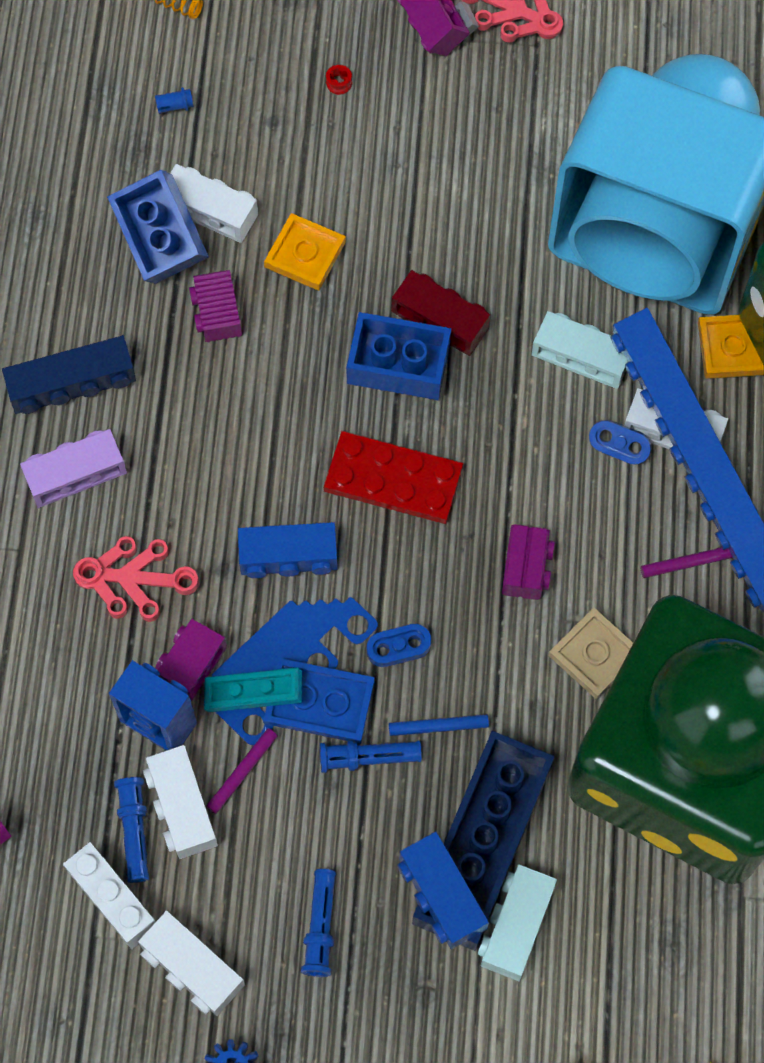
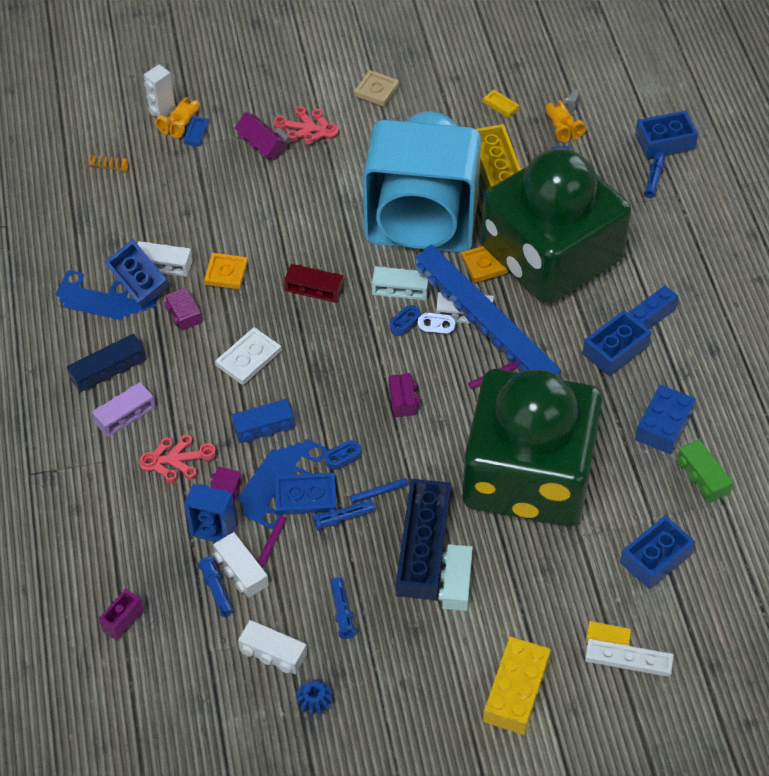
camera: 15 degrees left, 15 degrees down
(99, 262) = (109, 304): none -> blue piece
(109, 894) = (212, 623): white brick -> none
(174, 101) = (126, 213): blue pin -> none
(253, 690) = (265, 496): teal tile -> none
(297, 421) = (248, 356): none -> white plate
(333, 84) = (215, 185): red bush -> none
(393, 477) = (312, 372): red plate -> none
(398, 356) = (297, 308): blue brick -> none
(442, 891) = (409, 562): blue brick -> none
(568, 422) = (404, 321): none -> blue plate
(592, 652) = (453, 431): tan plate -> none

